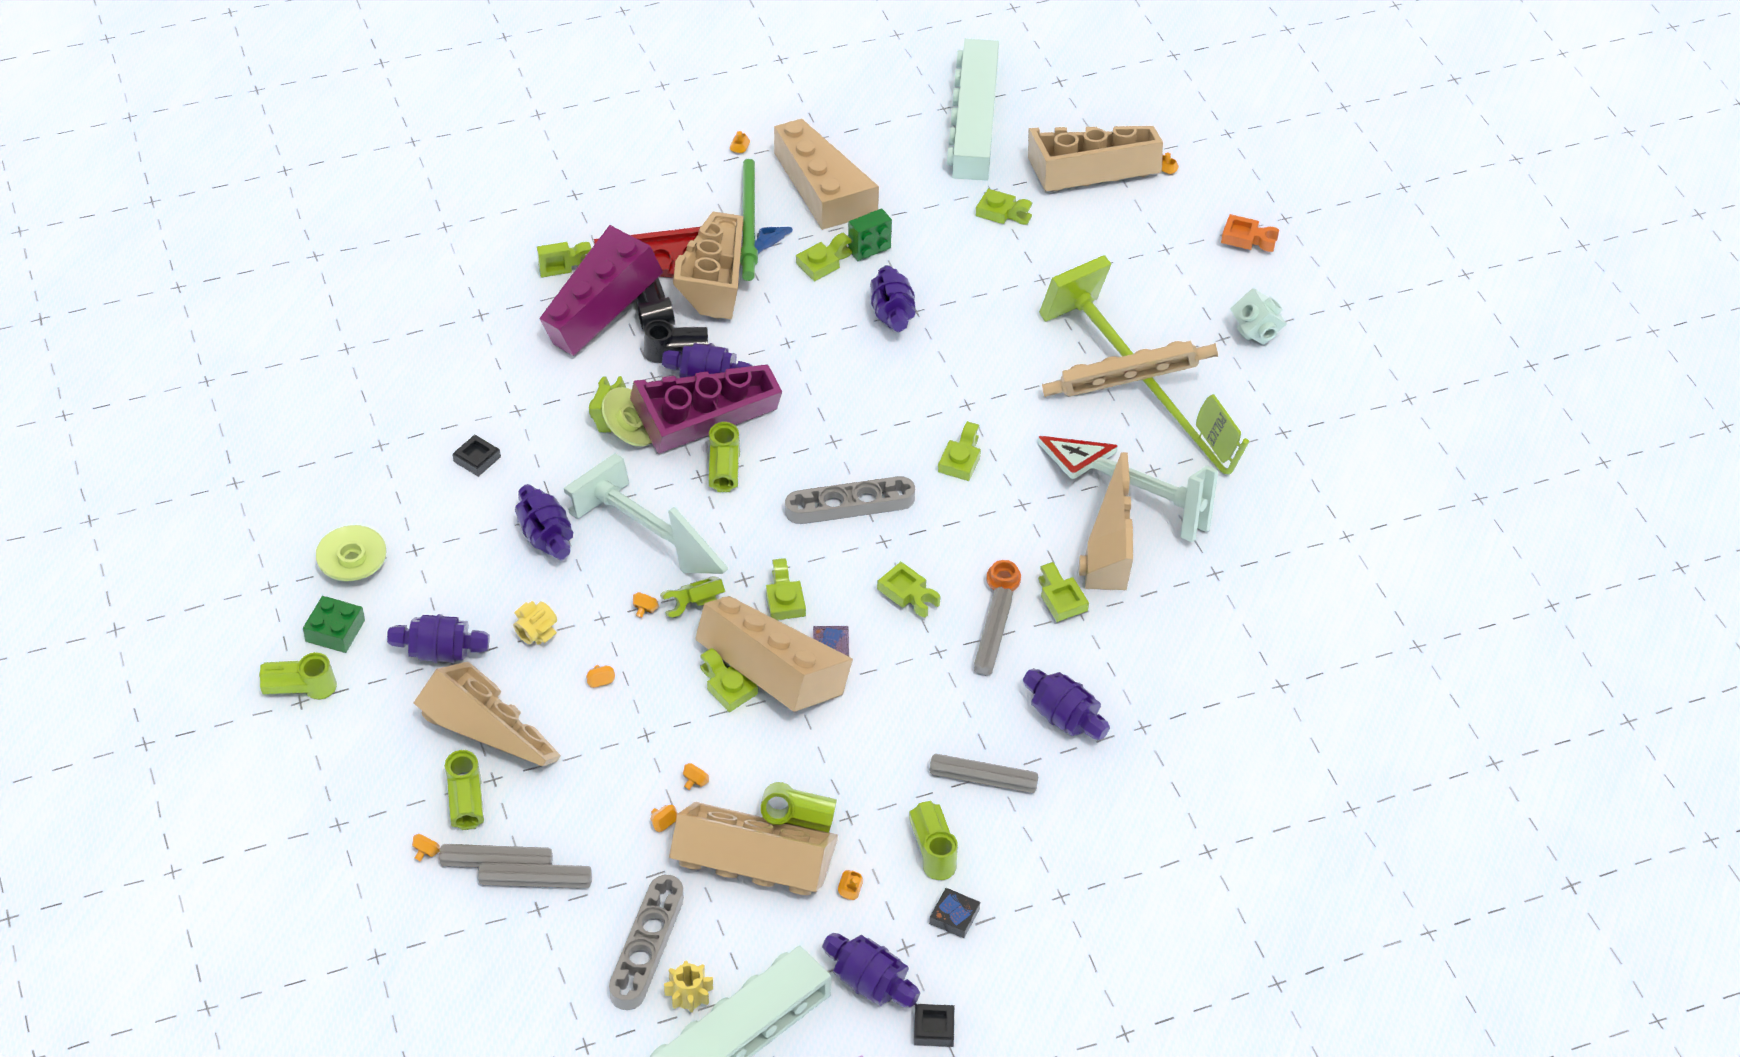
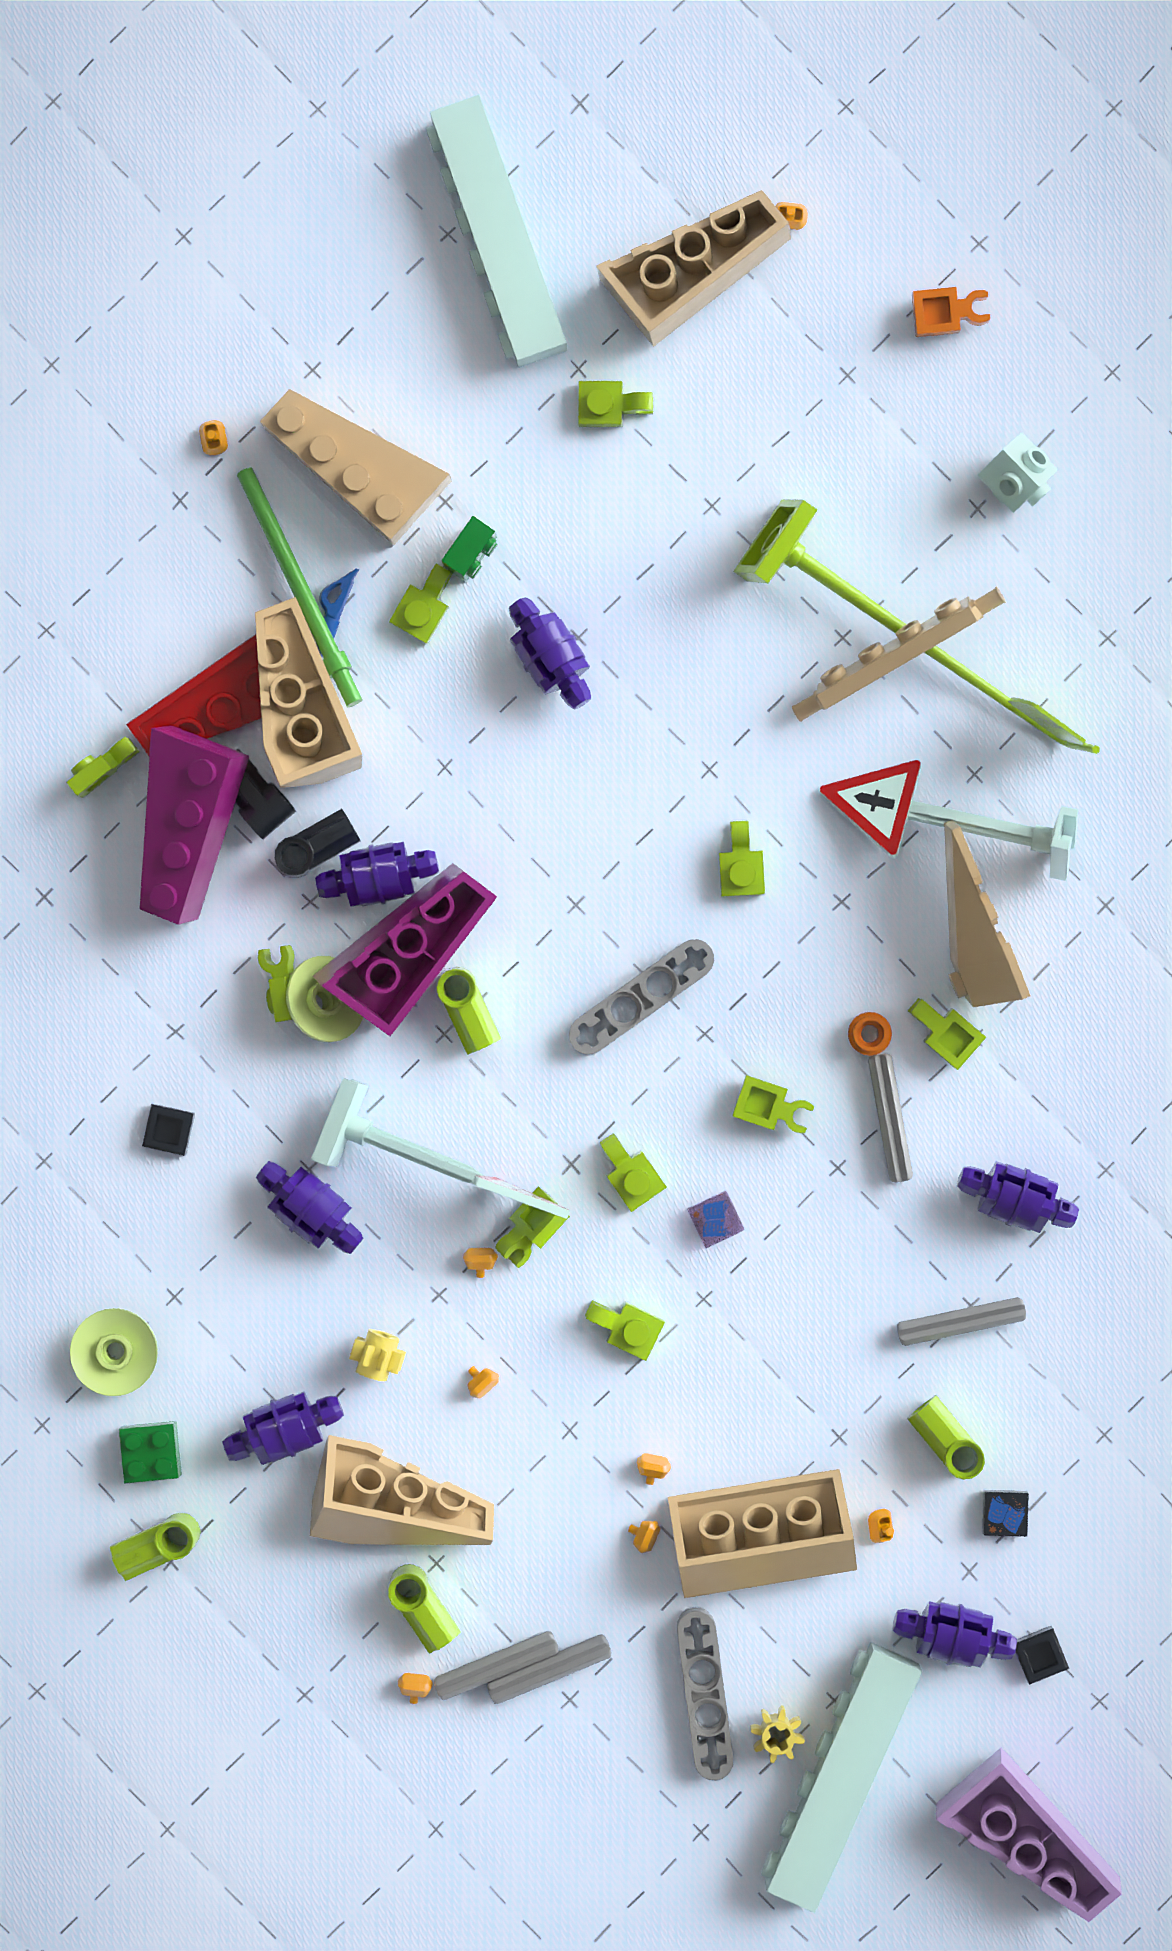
camera: 20 degrees left, 40 degrees up
(773, 654) = (666, 1285): tan wedge -> none
(802, 810) = (773, 1472): lime piece -> none

